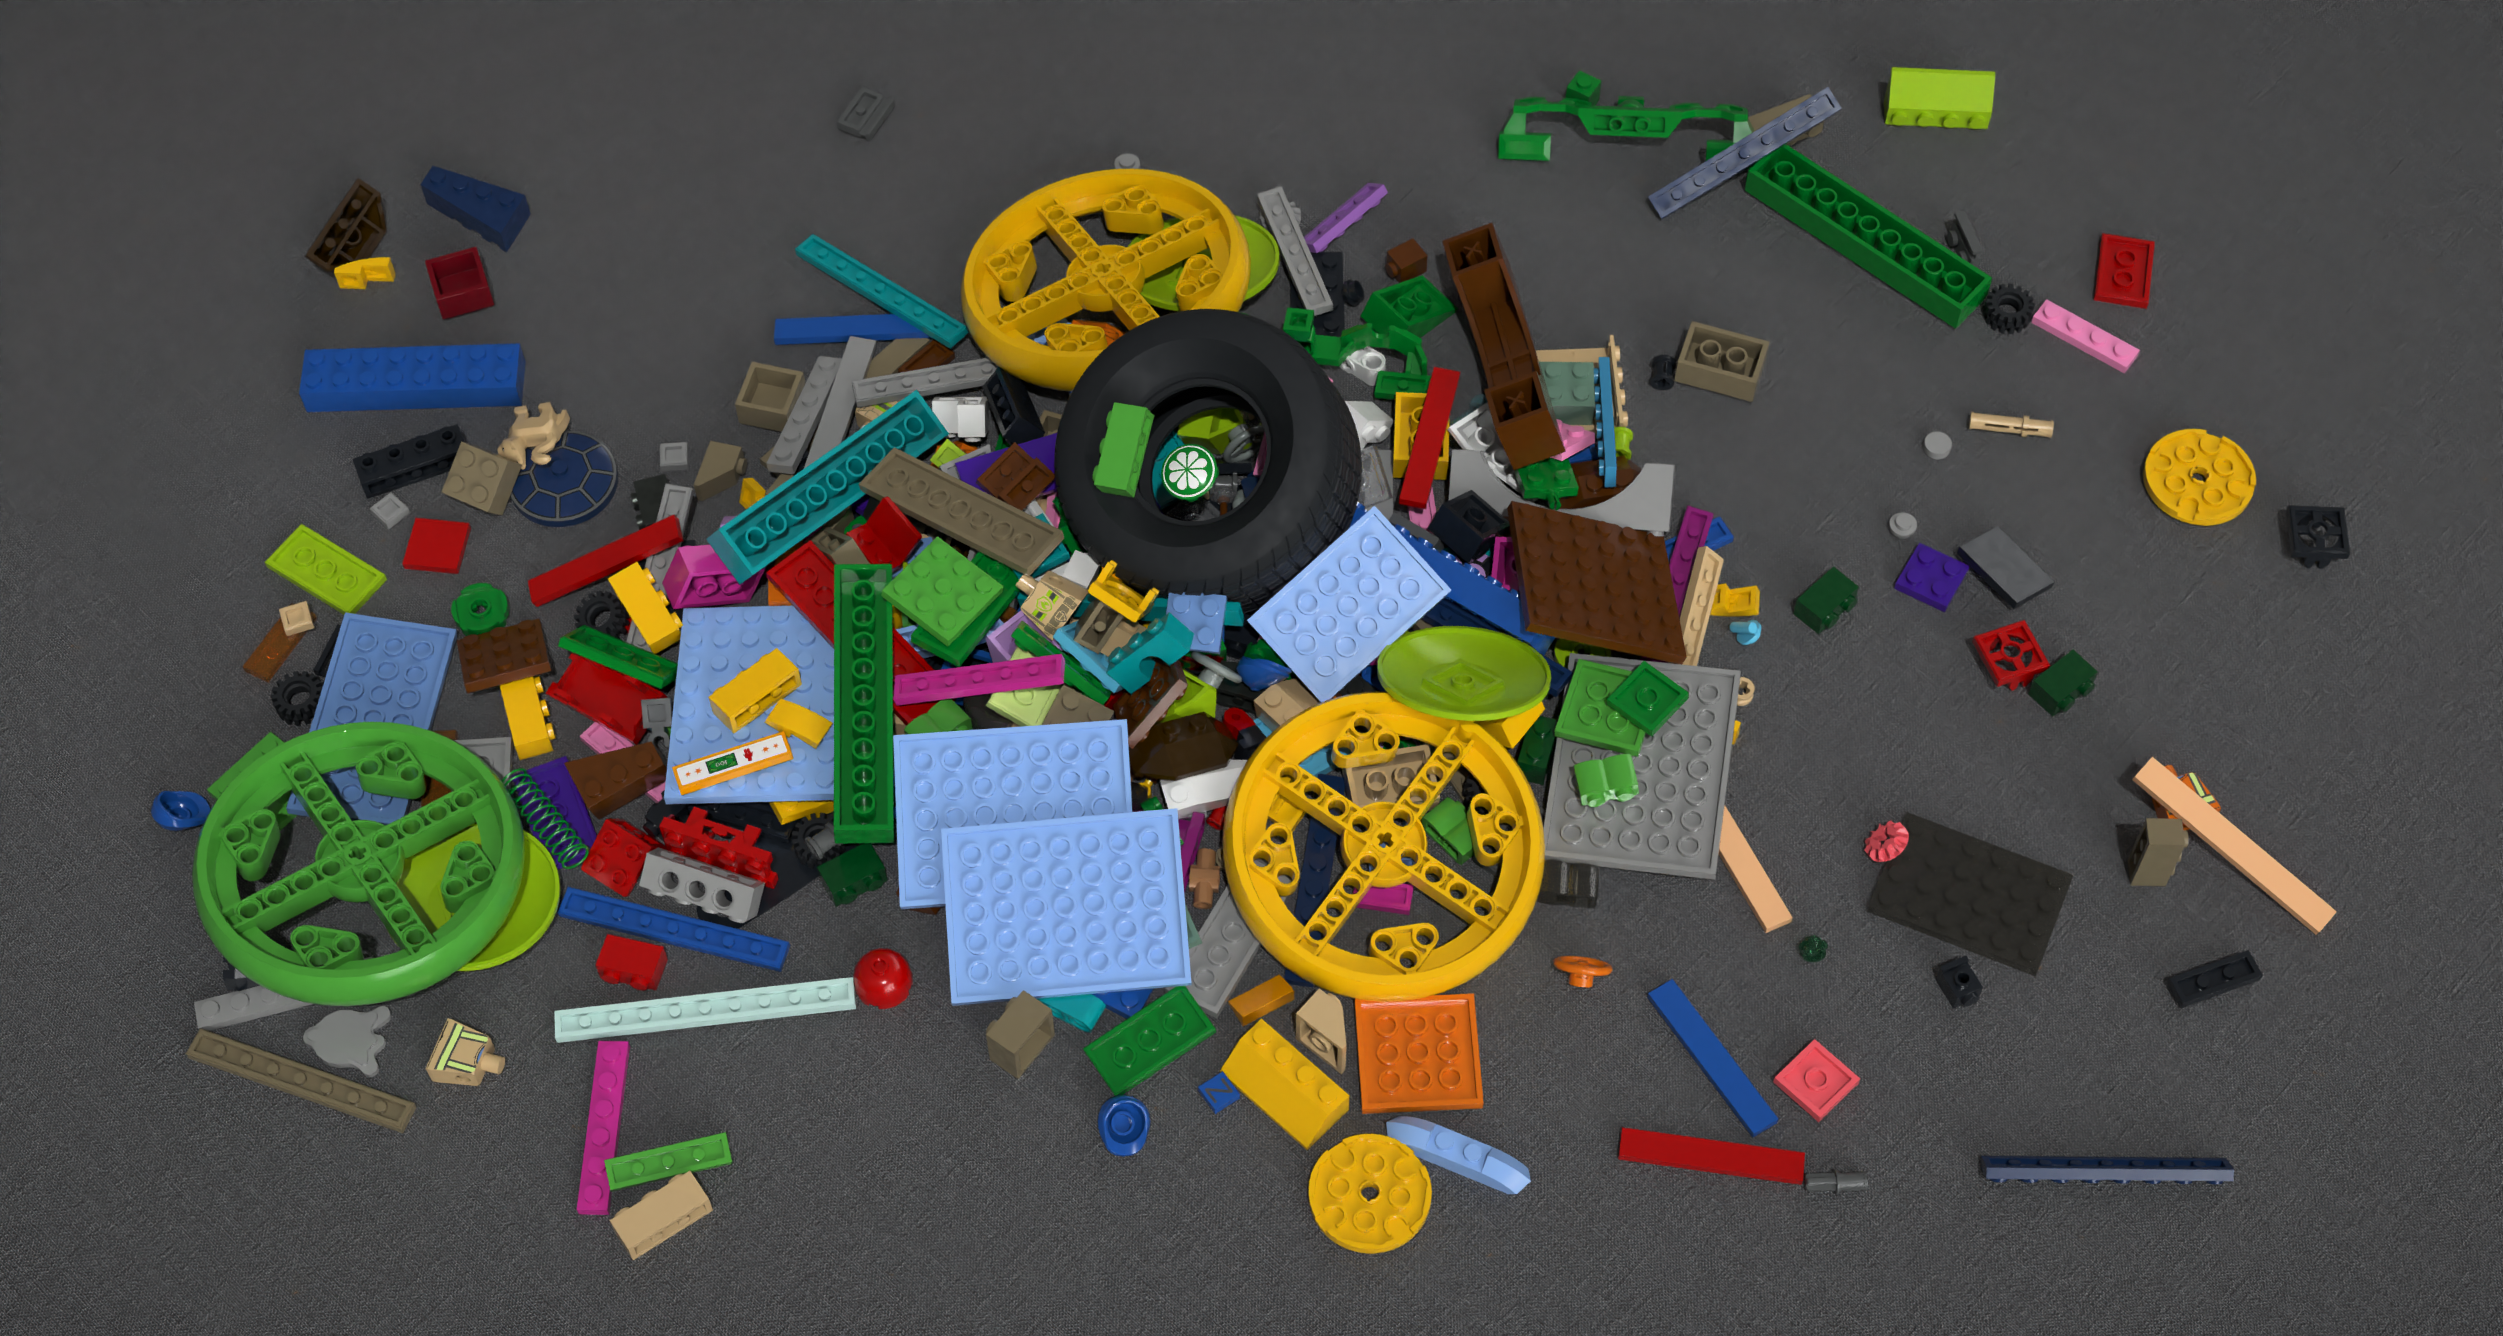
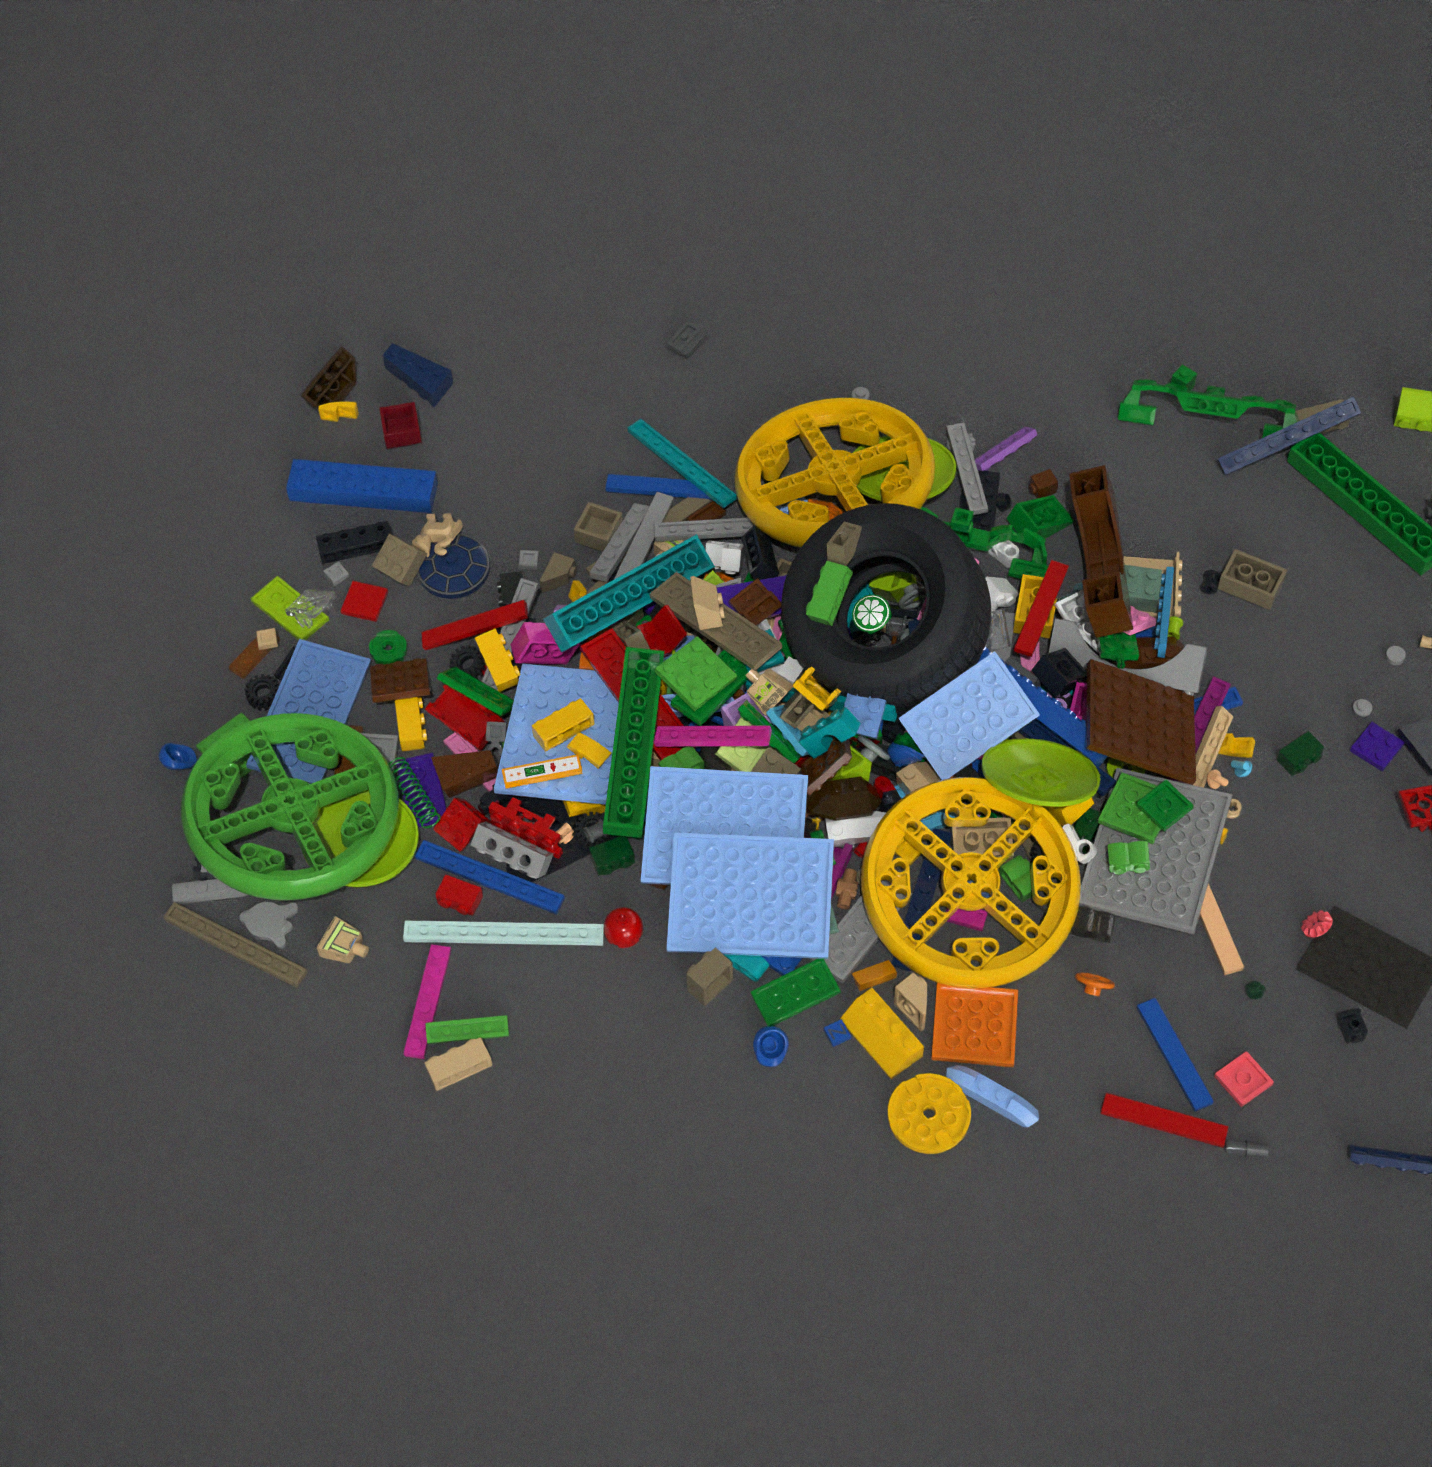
camera: 10 degrees right, 0 degrees up
(371, 551) = (322, 600): none -> clear piece
(780, 850) = (565, 833): none -> light nougat plate
(946, 487) = (707, 604): none -> tan slope
(1135, 375) = (843, 543): none -> dark tan slope
(1532, 770) = (1079, 844): none -> white plate
(1711, 652) = (1215, 779): none -> light nougat plate

